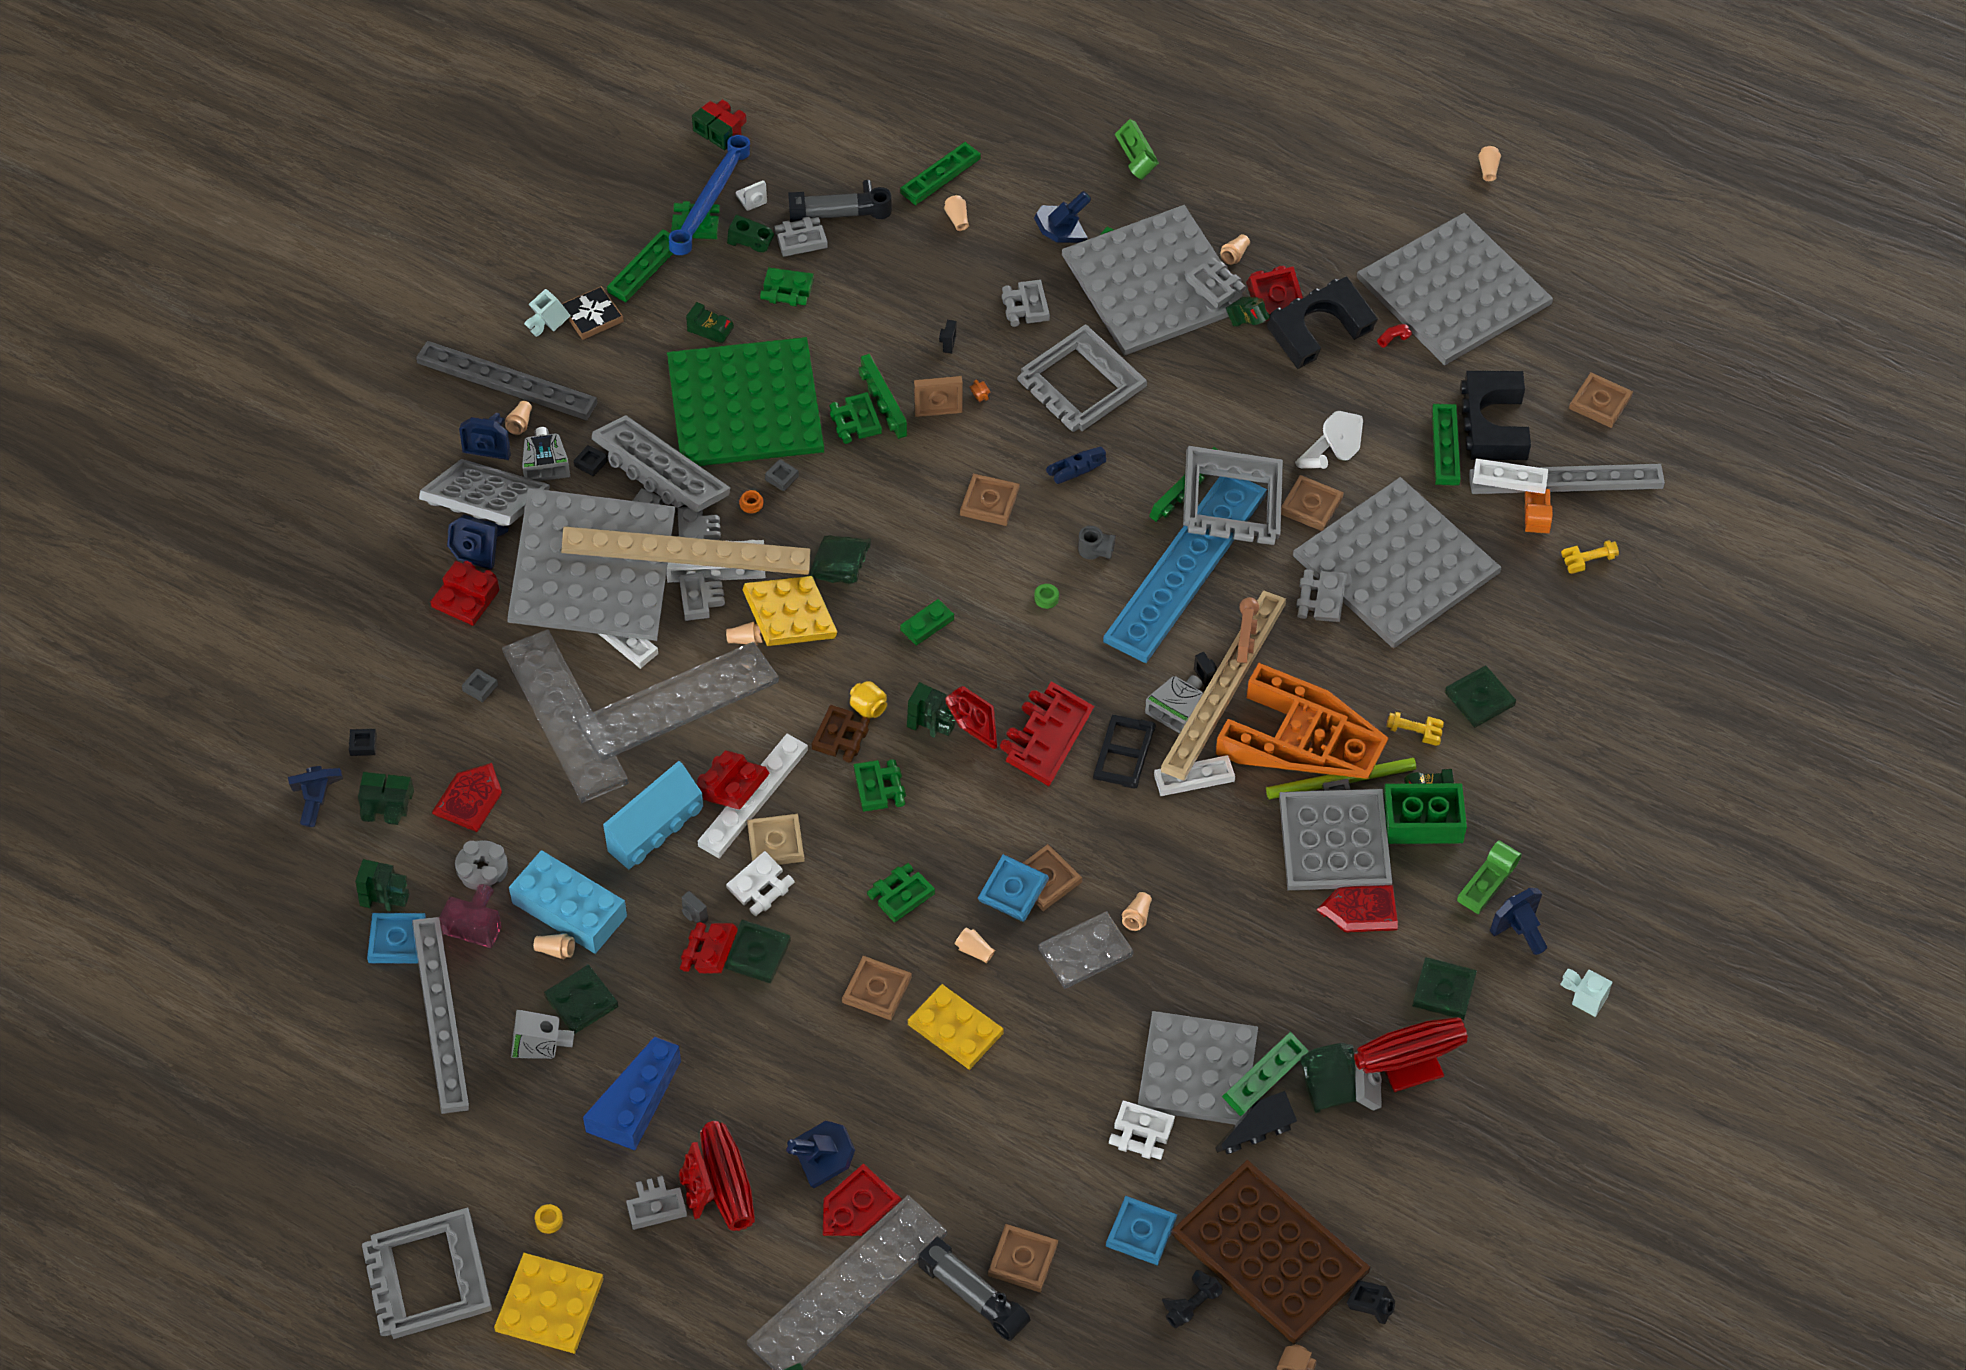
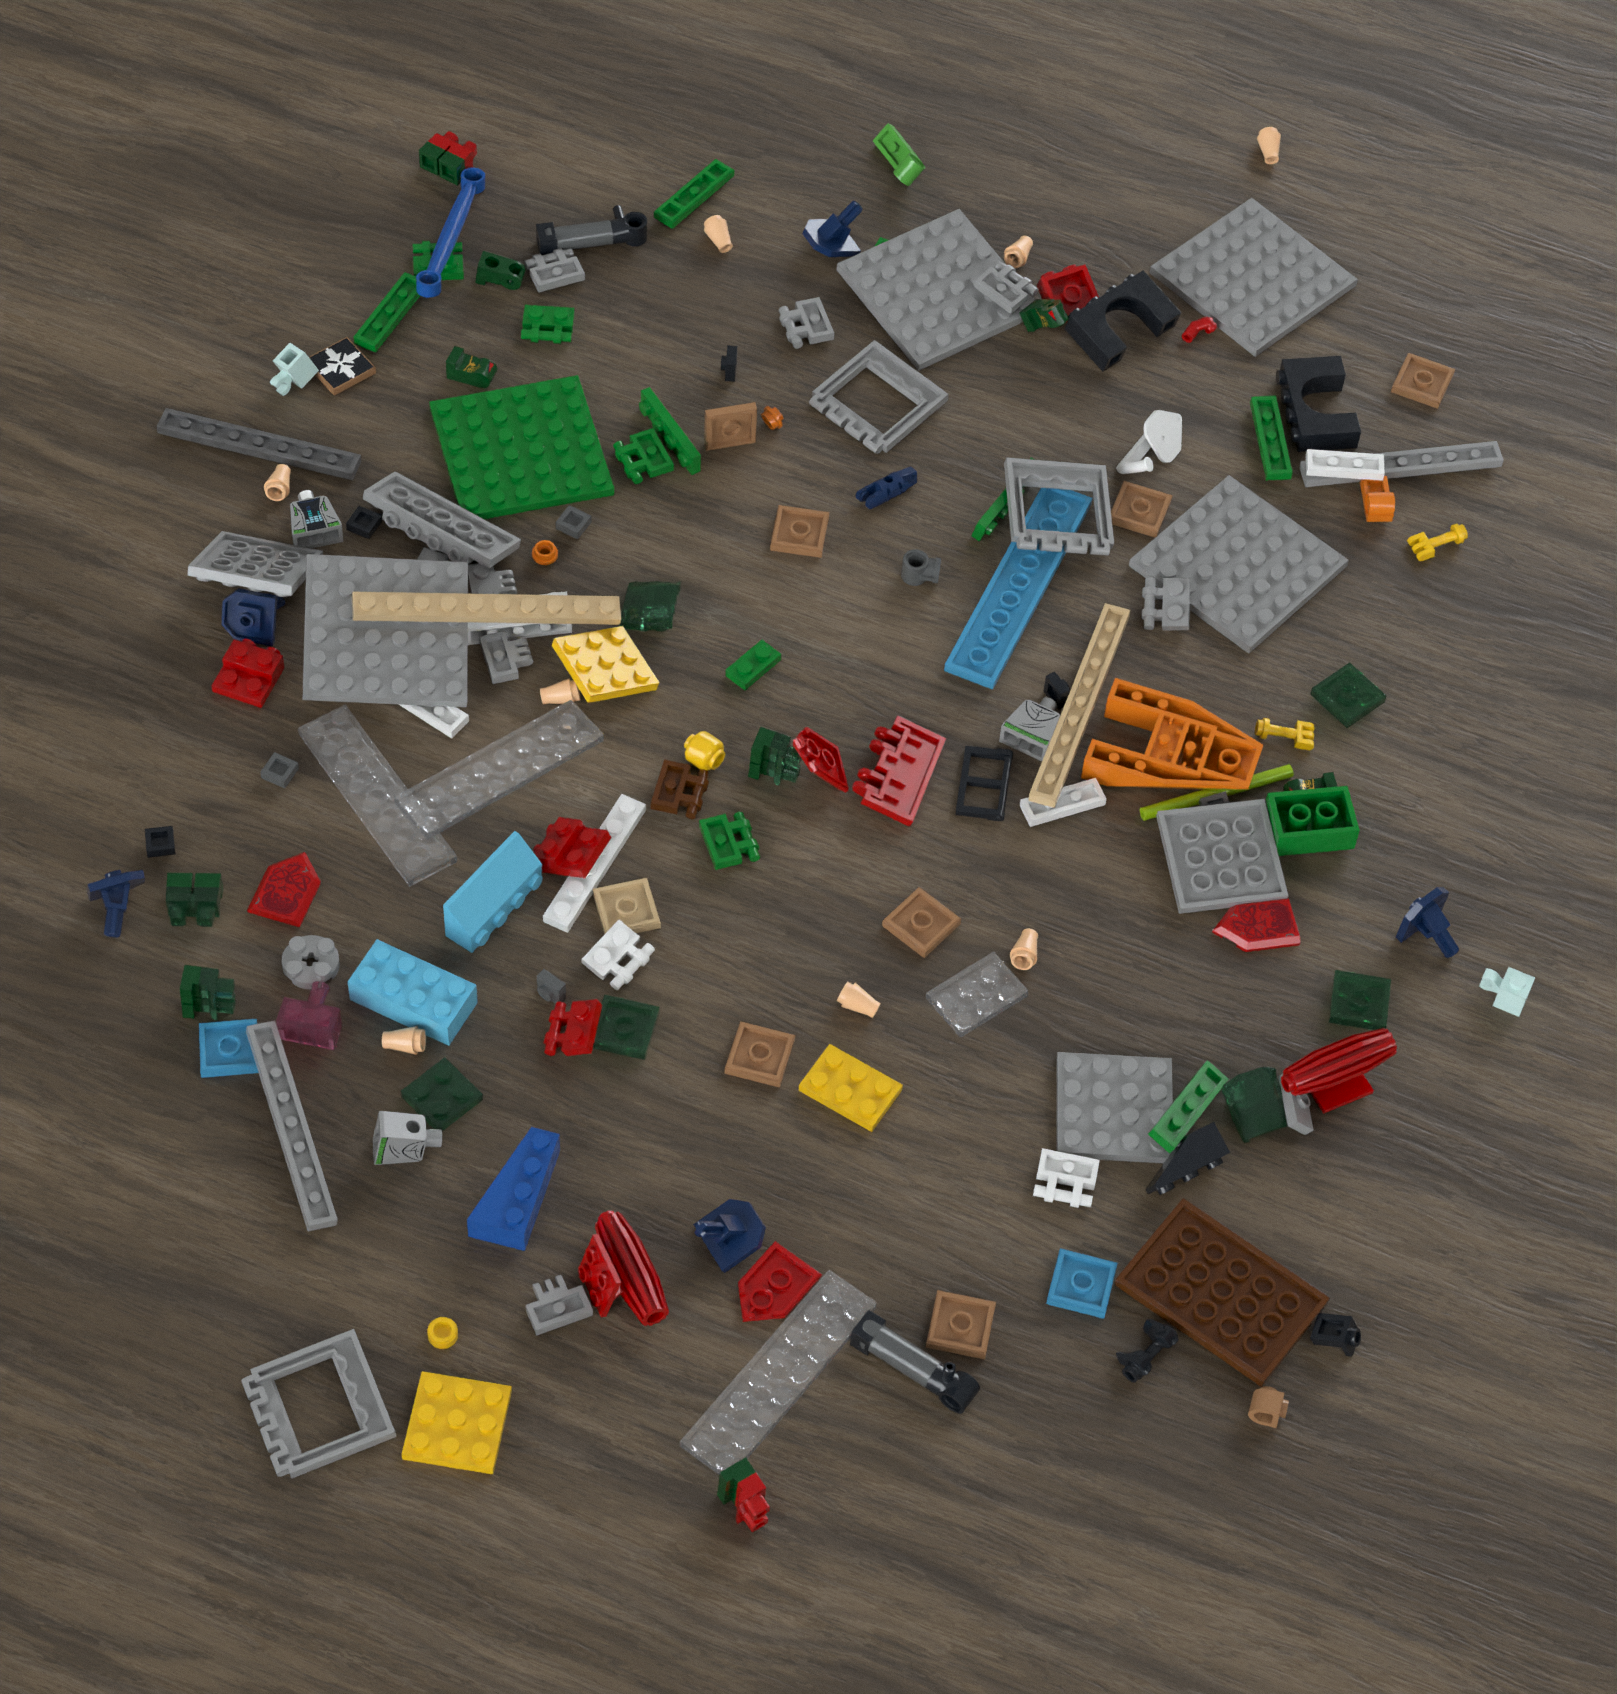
camera: 10 degrees left, 0 degrees up
(485, 437) = (246, 506): dark blue piece -> none
(754, 195) = (499, 230): white bracket -> none
(903, 898) = (775, 956): green plate -> none
(1013, 888) = (890, 936): dark azure tile -> none
(1046, 596) = (876, 627): bright green tile -> none
(1248, 607) = (1095, 622): nougat plate -> none
(1490, 877) = (1388, 881): bright green plate -> none

